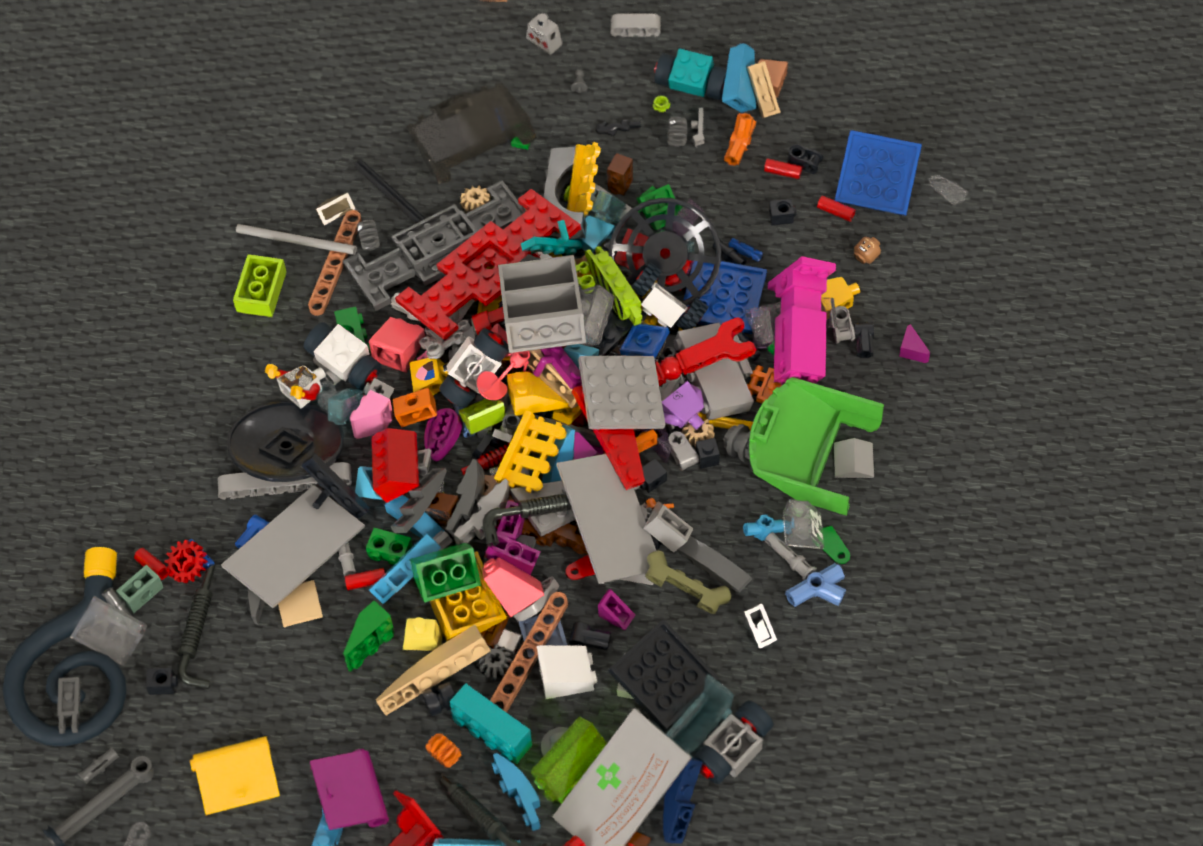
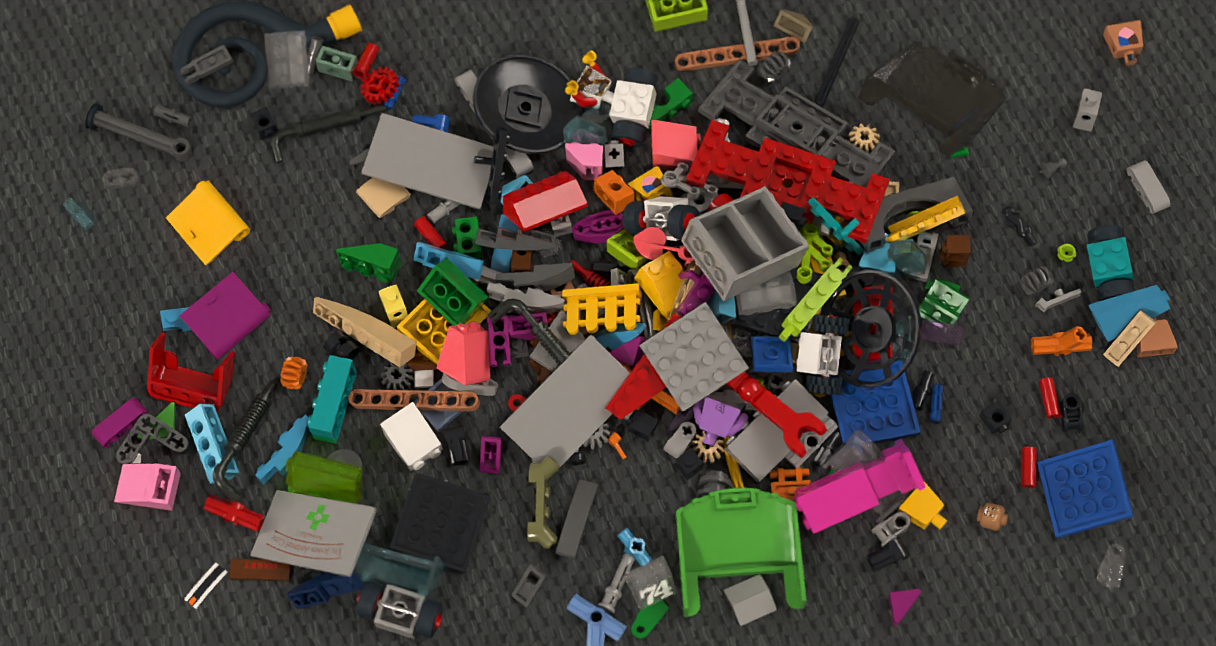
camera: 65 degrees right, 10 degrees up
(668, 527) = (592, 461): light grey slope -> none

